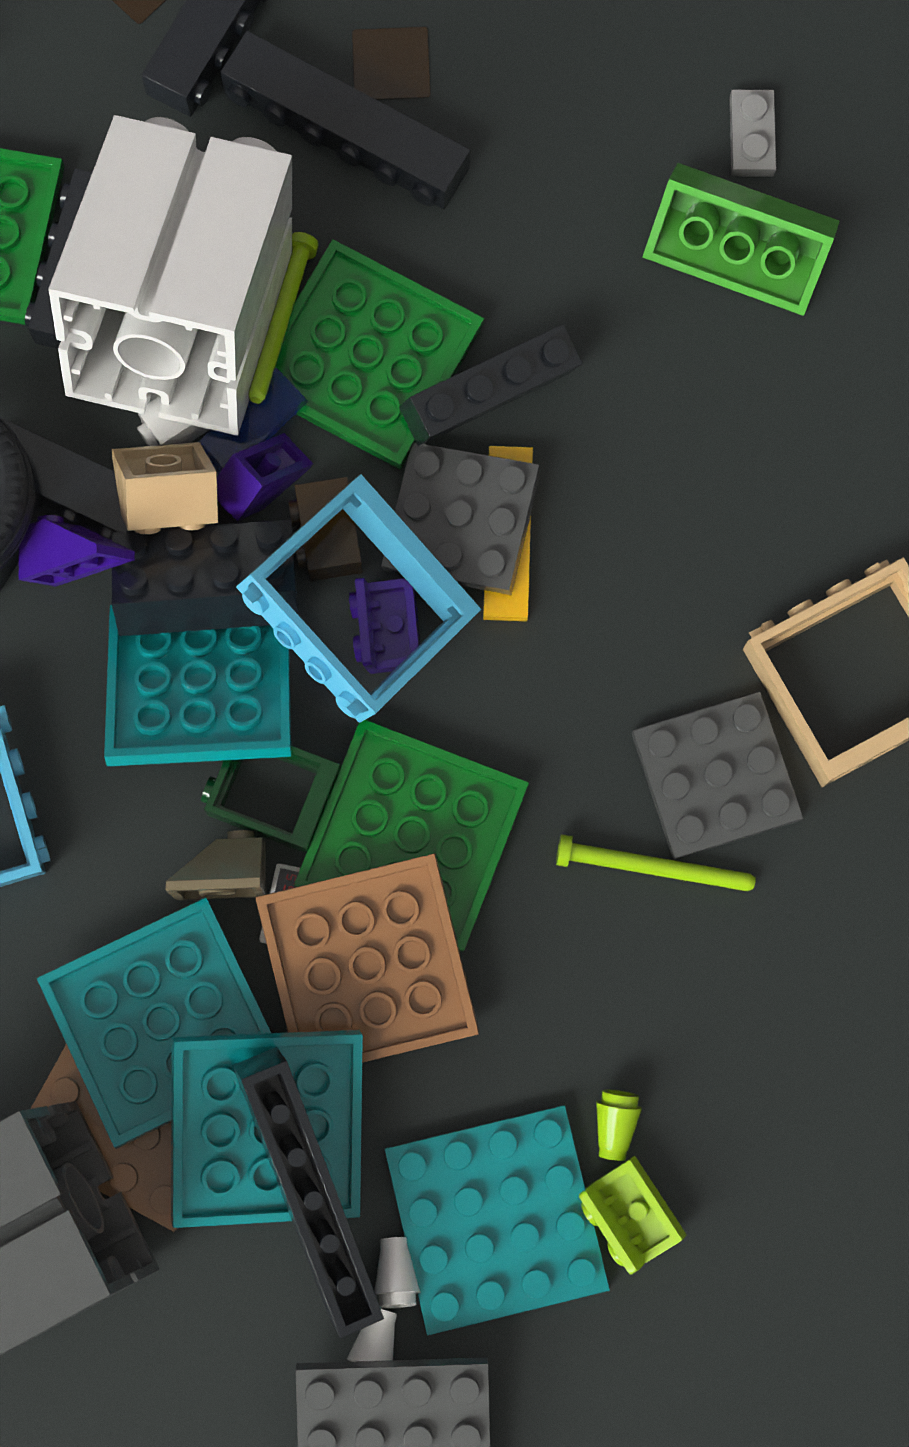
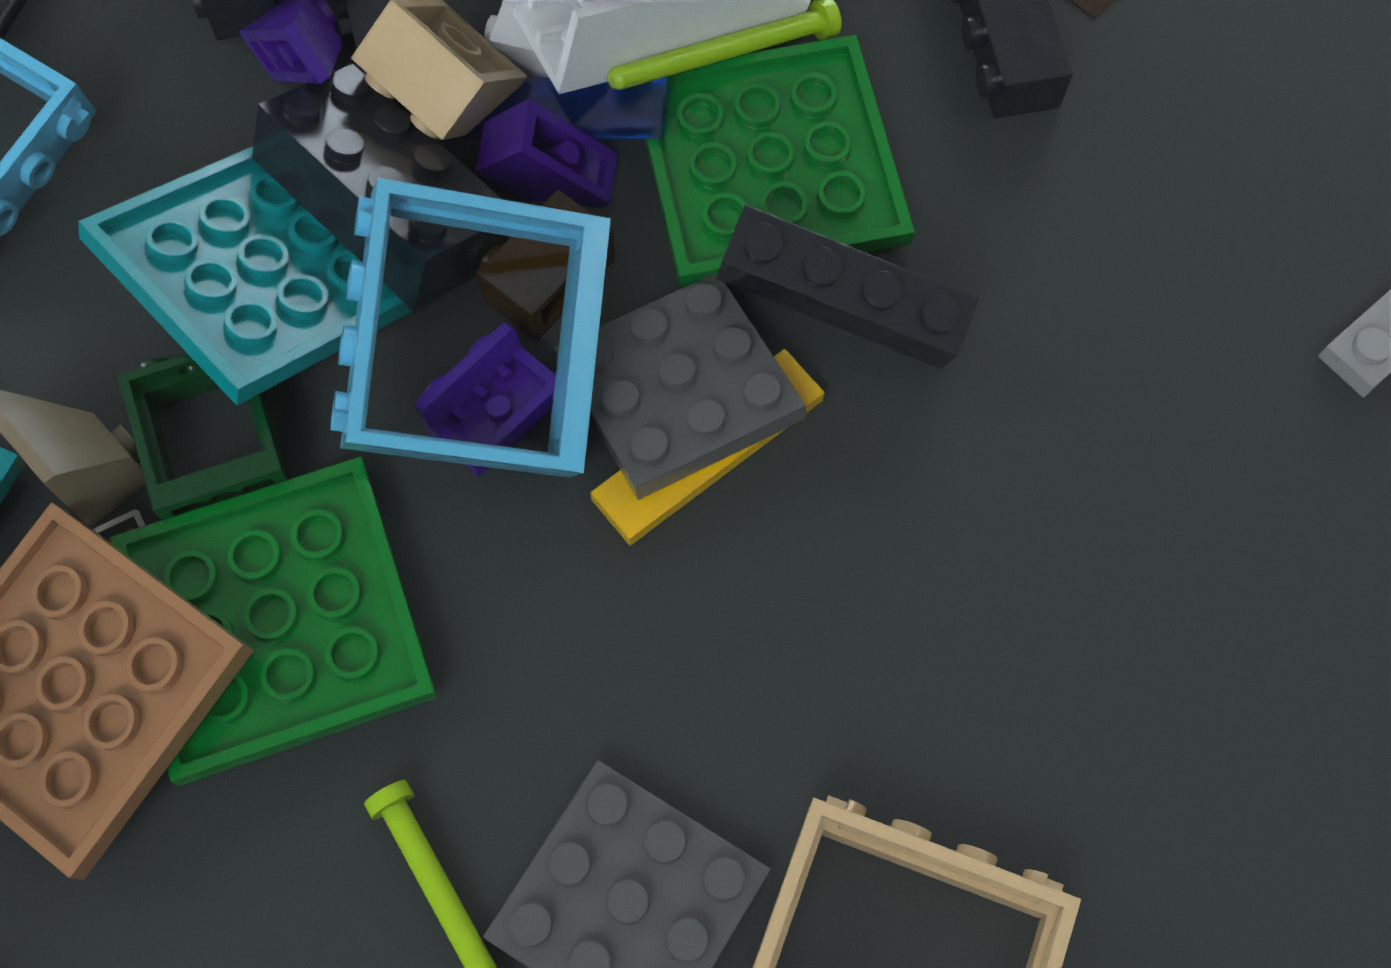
camera: 50 degrees right, 10 degrees down
(740, 238) = (1262, 414): bright green slope -> none

